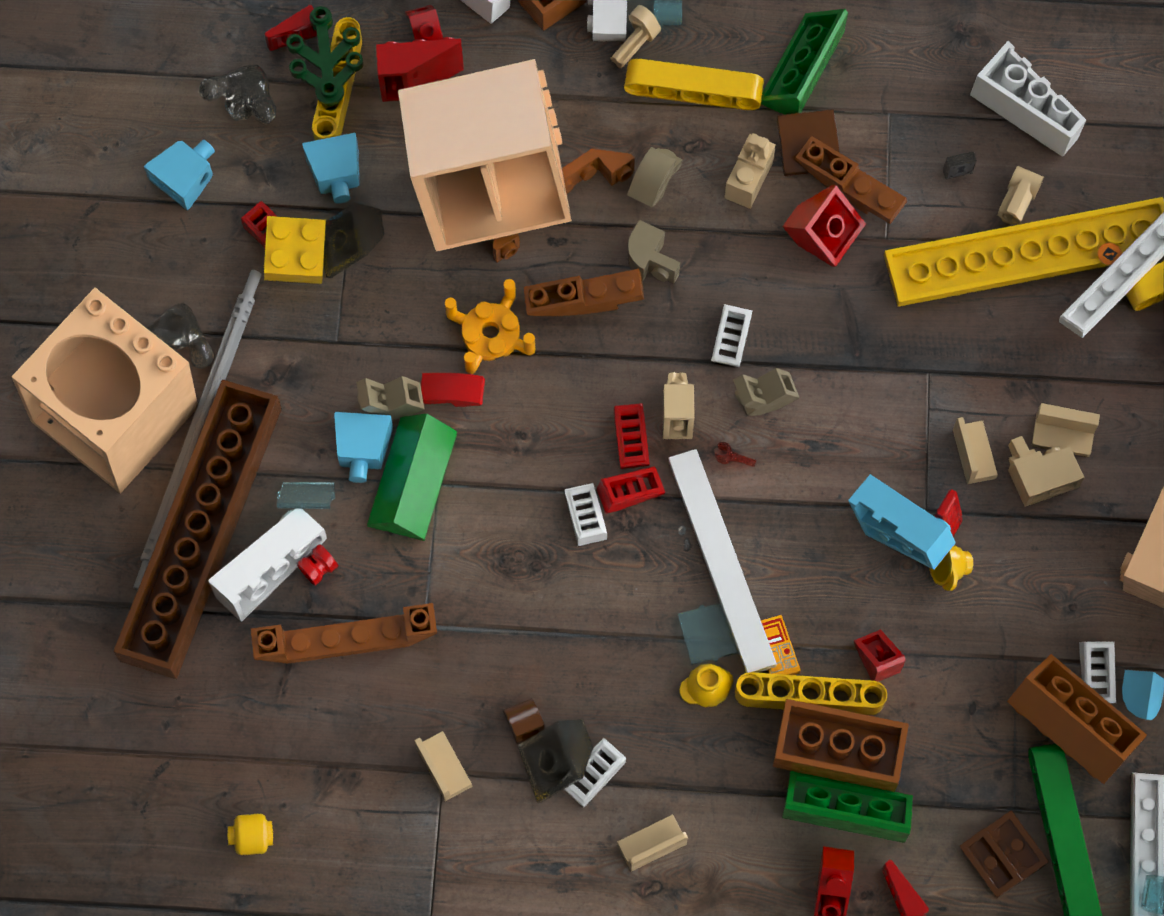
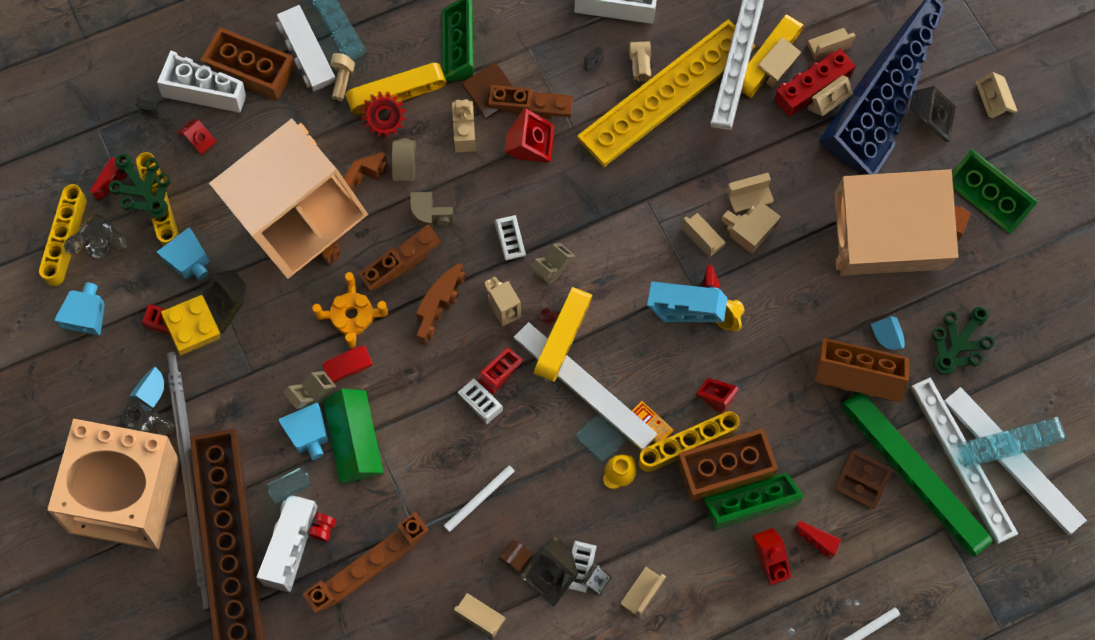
camera: 30 degrees left, 0 degrees up
(209, 58) = (62, 225): none -> yellow beam
(209, 300) = (149, 388): none -> medium azure brick
(416, 64) = (206, 163): red slope -> none
(519, 628) = (479, 498): none -> white bar
(604, 797) = (596, 579): none -> tile
(608, 362) = (440, 295): none -> dark orange slope
(628, 412) = (471, 320): red slope -> none
(648, 118) = (383, 125): none -> red gear
(728, 484) = (563, 334): none -> yellow beam
(1109, 253) = (716, 70): orange sticker -> none
(1109, 662) = (858, 324): white slope -> none

